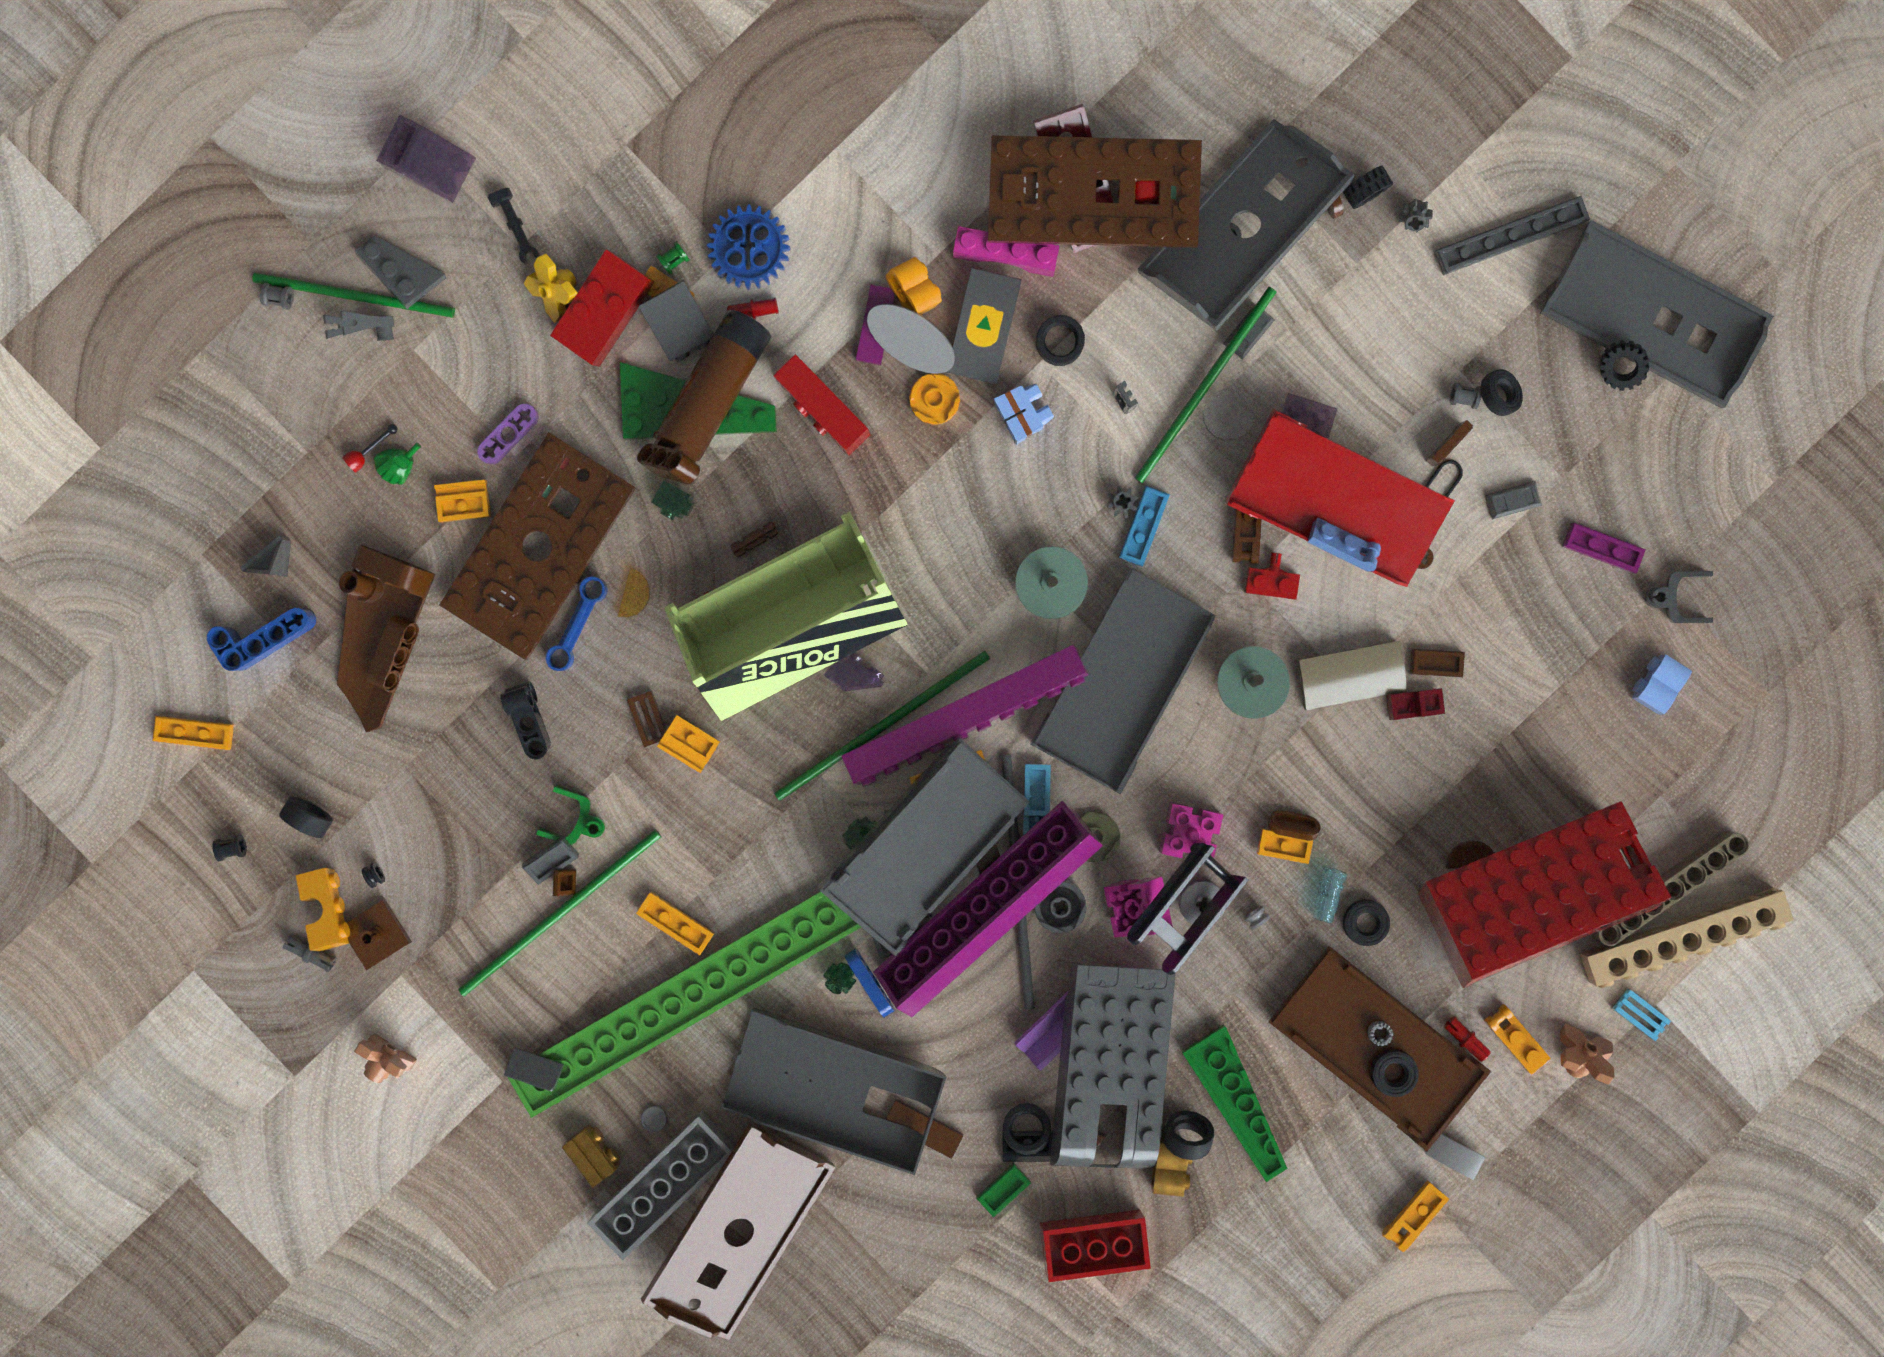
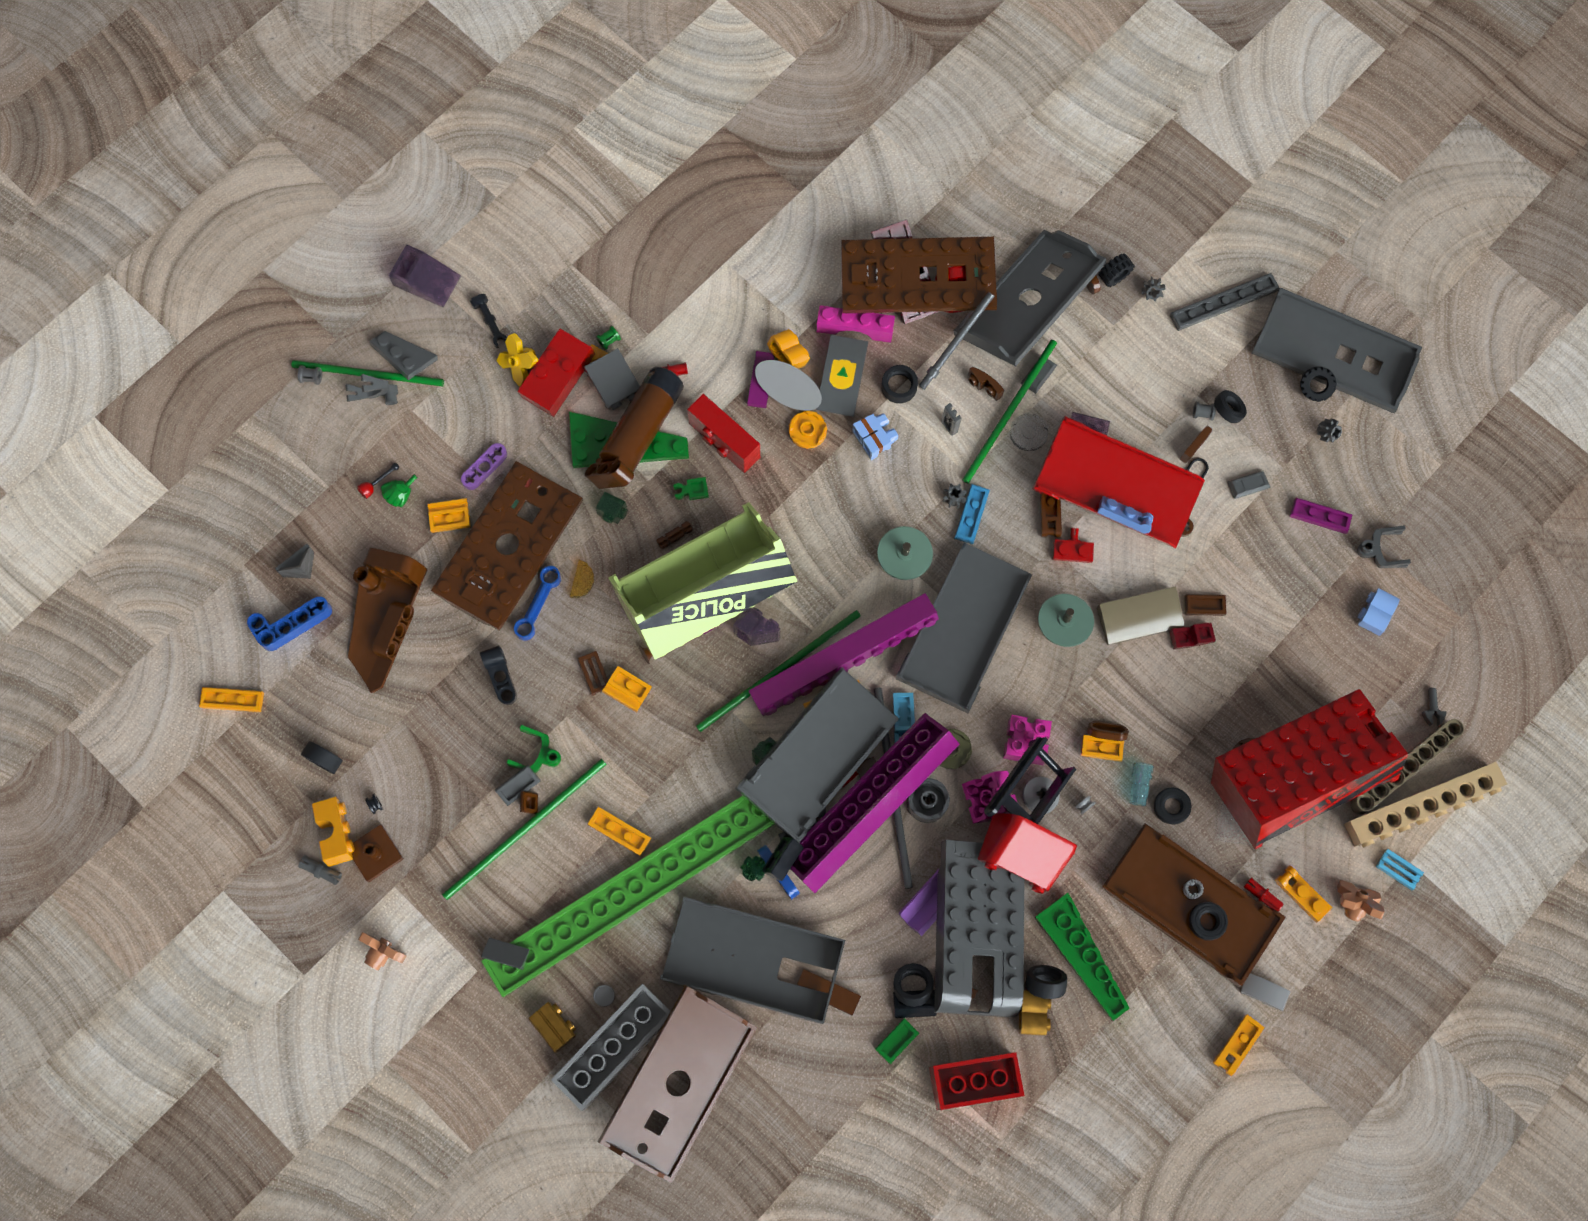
camera: 10 degrees left, 15 degrees down
(229, 848) = (257, 787): black bush -> none
(771, 246) = (682, 327): blue gear -> none
(783, 477) = (695, 488): none -> green plate
(874, 973) = (782, 858): none -> black slope
(1107, 324) = (933, 371): none -> dark grey bar
(1169, 338) = (981, 379): none -> reddish brown slope
(1174, 982) = (1025, 850): none -> windscreen
(1630, 431) = (1329, 430): none -> dark grey gear
(1714, 813) = (1433, 705): none -> dark grey bar

